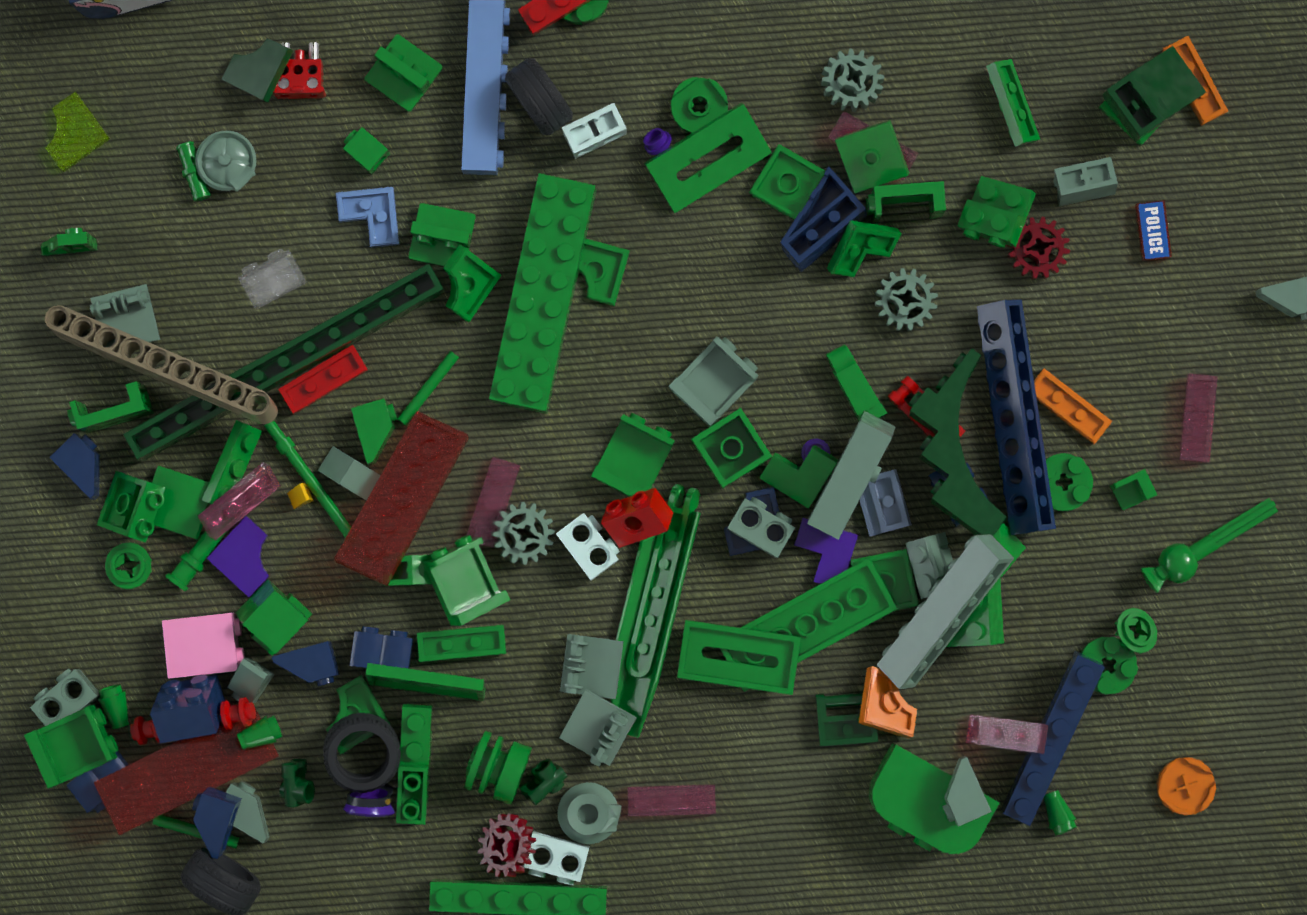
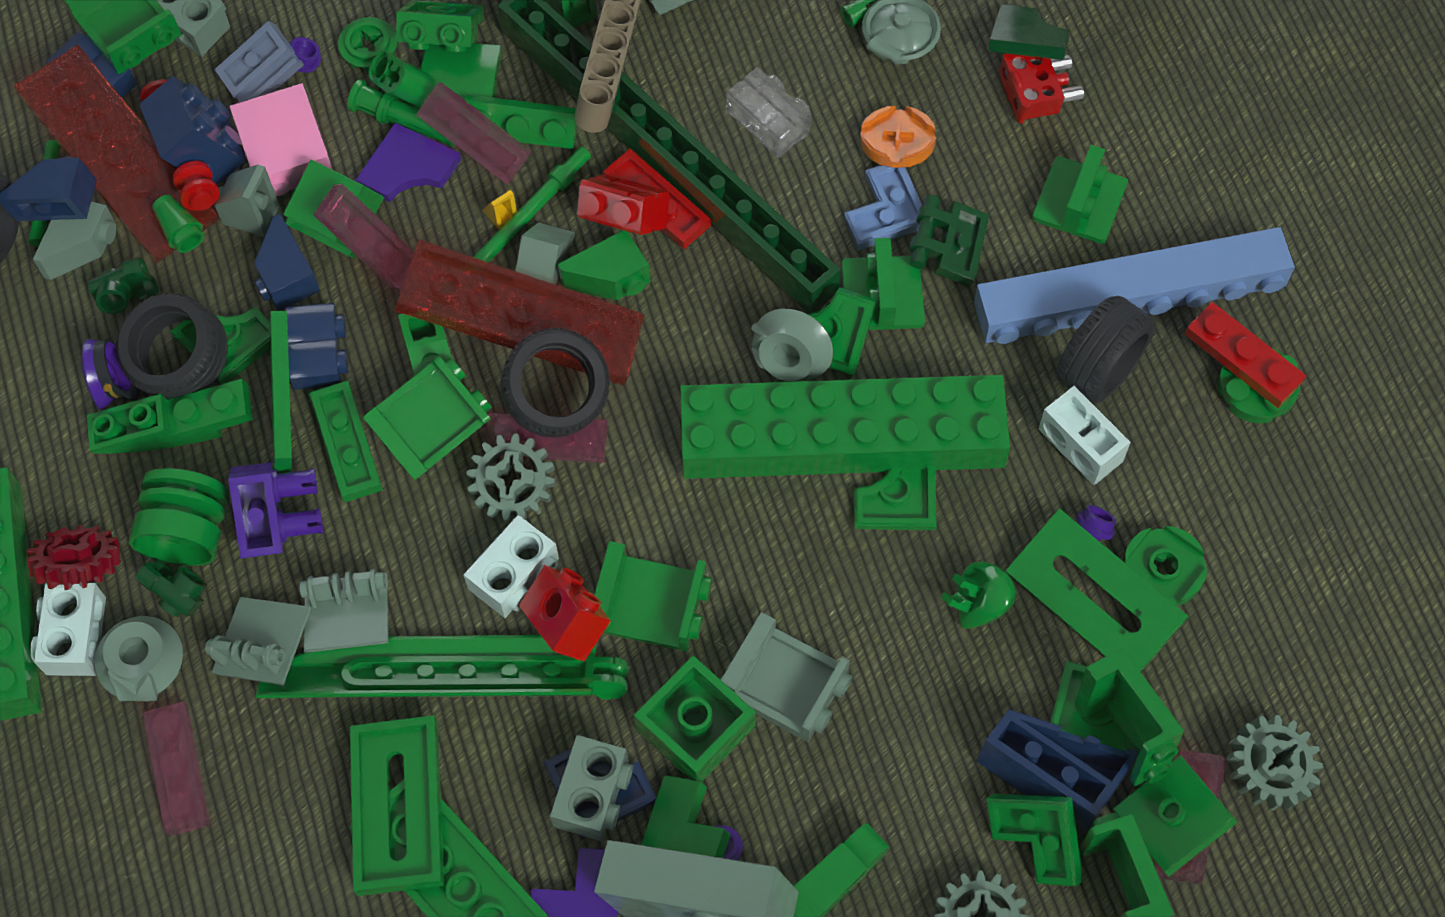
camera: 75 degrees right, 20 degrees down
(114, 705) = (190, 64): green cone -> none
(127, 617) = (307, 52): none -> dark purple plate
(133, 651) = (259, 64): none -> sand blue plate
(176, 545) = (401, 78): none -> green beam
(312, 595) = (365, 235): none -> clear pink plate
(317, 189) = (898, 137): none -> orange tile
(329, 405) = (623, 204): none -> red brick
(365, 150) = (965, 176): green brick -> none
(419, 170) = (961, 240): none -> dark green plate
(428, 387) = (682, 325): green bar -> none
(476, 314) = (791, 345): none -> sand green piece
(495, 475) = (570, 343): none -> black tyre
(507, 712) = (257, 516): none -> dark purple brick
(690, 233) = (982, 594): none -> green piece
(807, 160) = (1137, 710): none -> green panel

